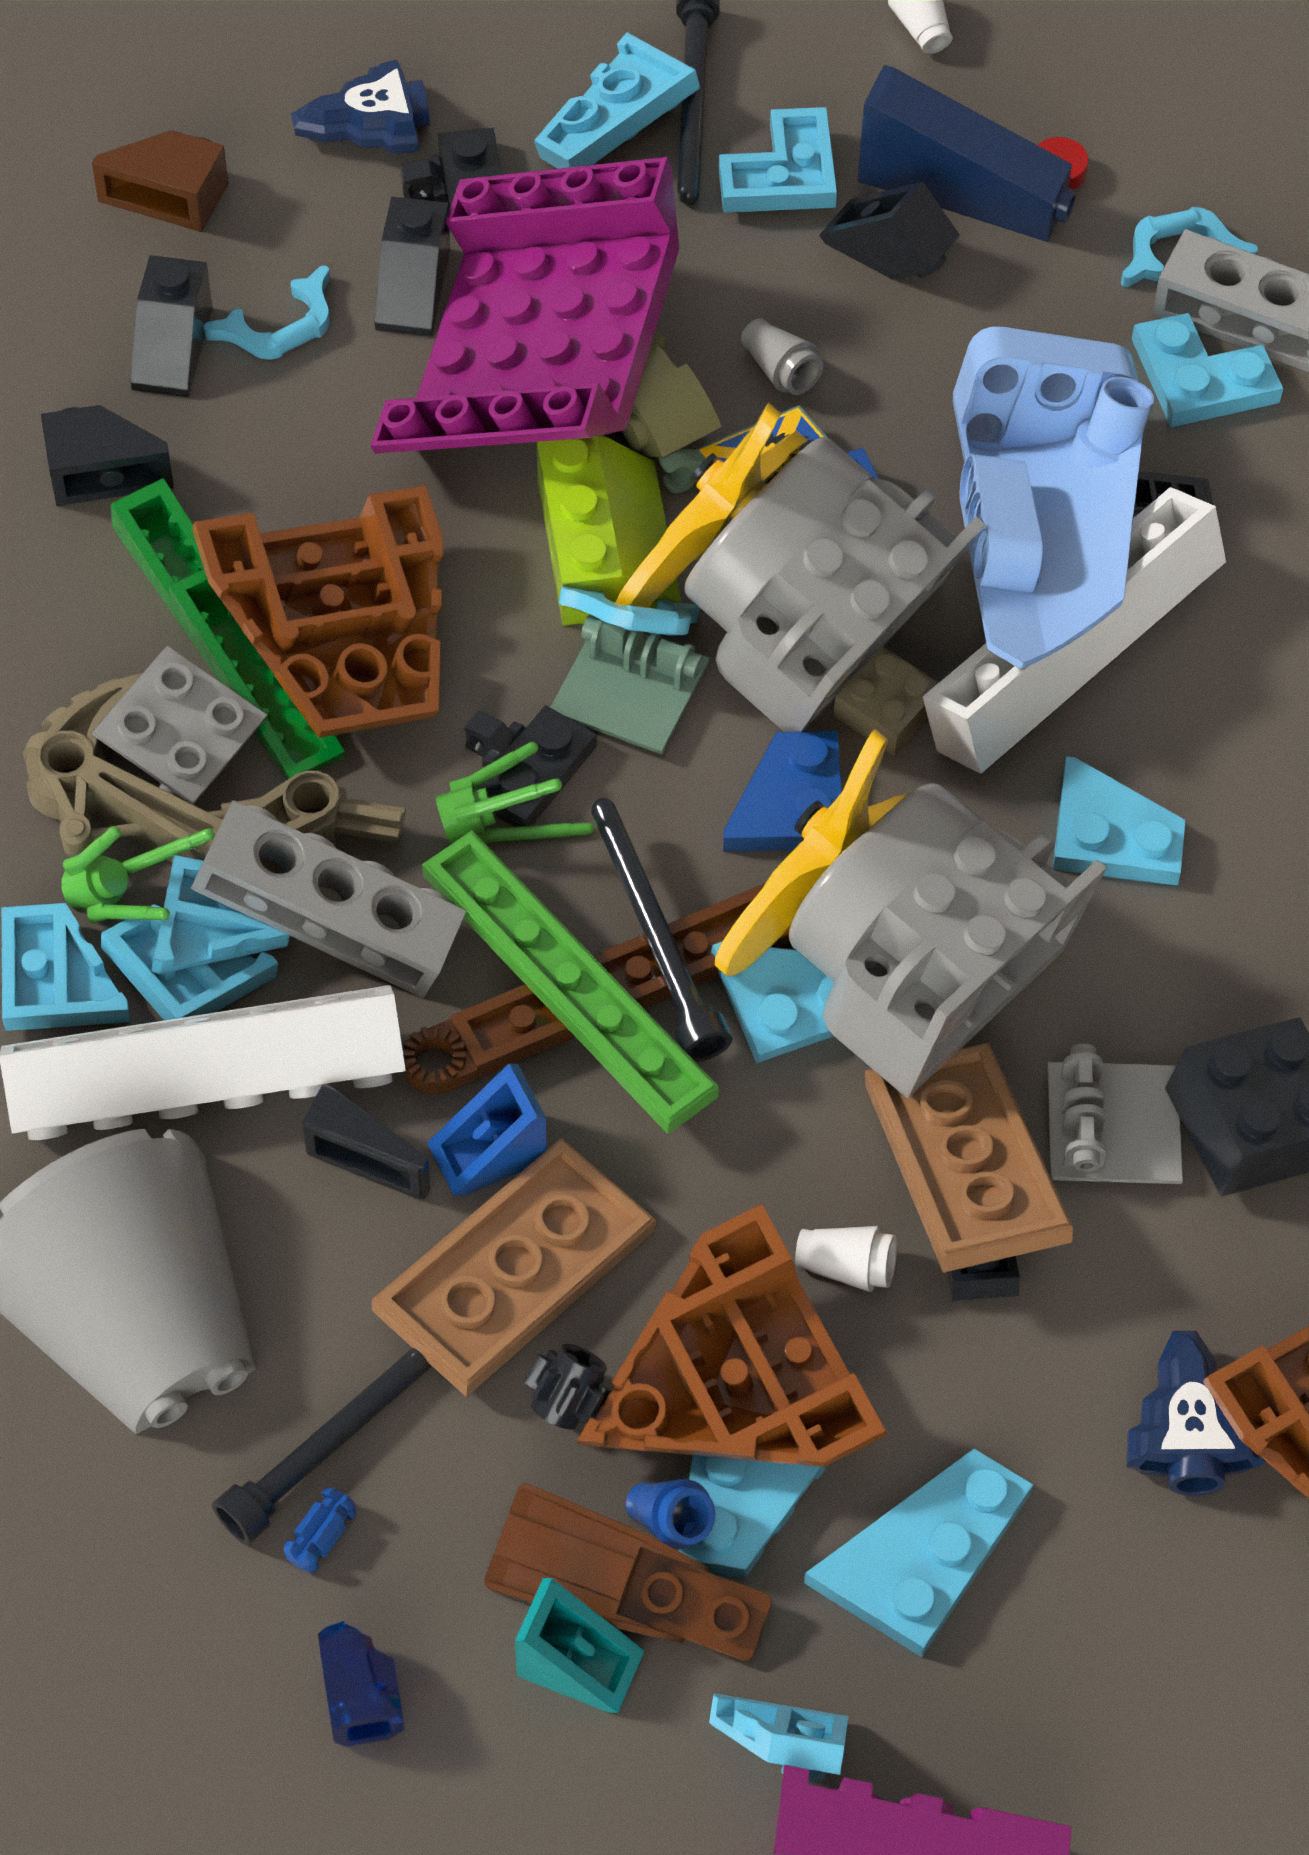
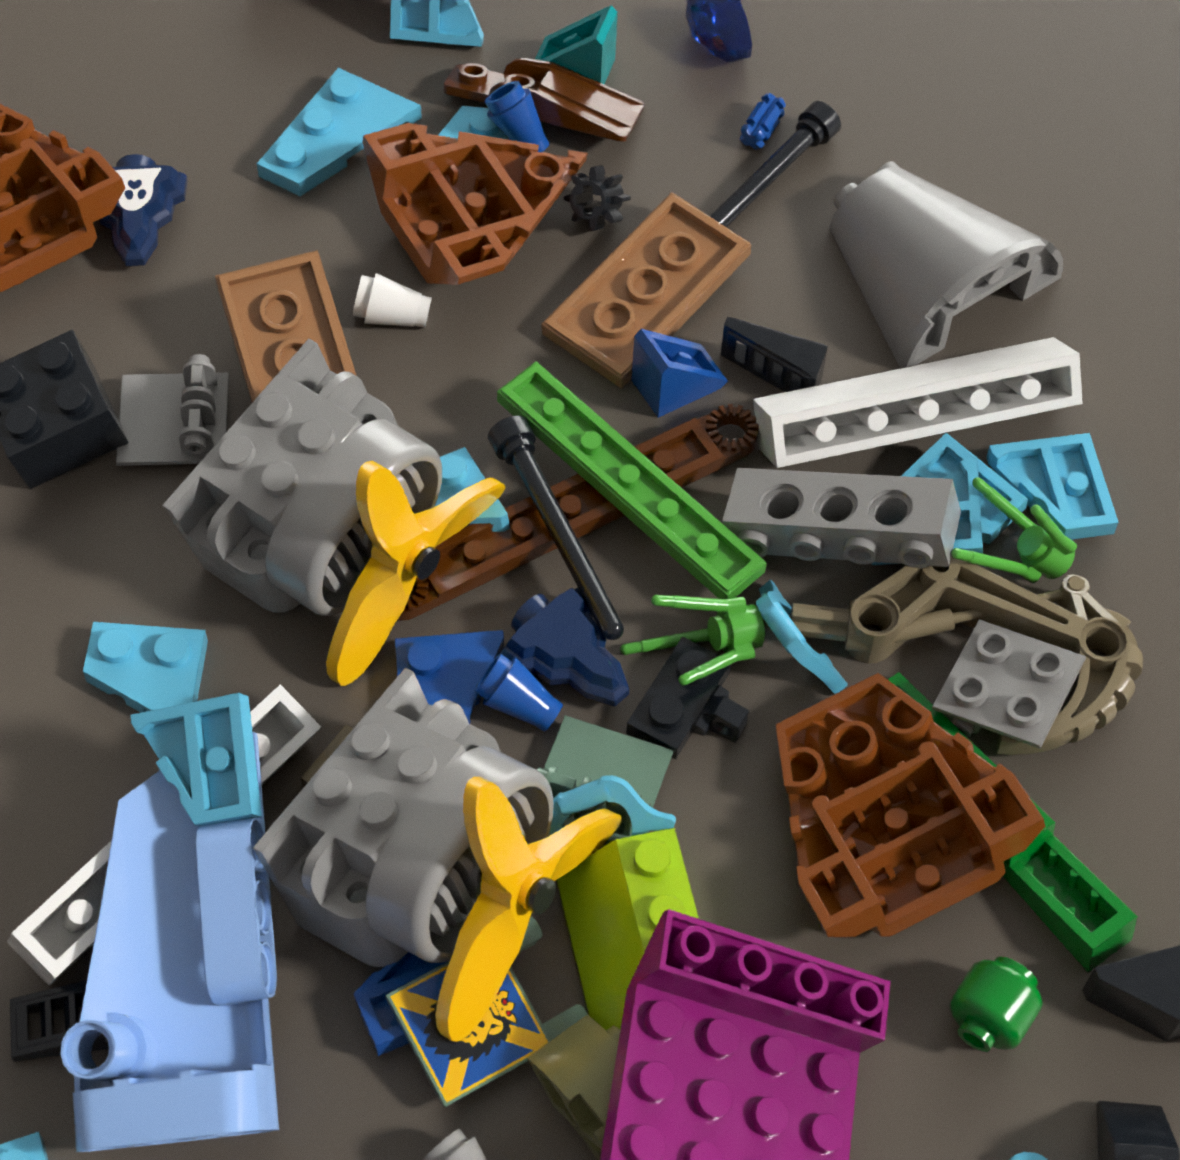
camera: 175 degrees right, 0 degrees up
(268, 447) = (996, 1004): none -> green head
(419, 797) = (776, 613): none -> medium azure helmet
(661, 814) = (565, 646): none -> dark blue rock
(716, 762) = (517, 693): none -> blue cone
(1037, 614) = (207, 756): none -> medium azure wing

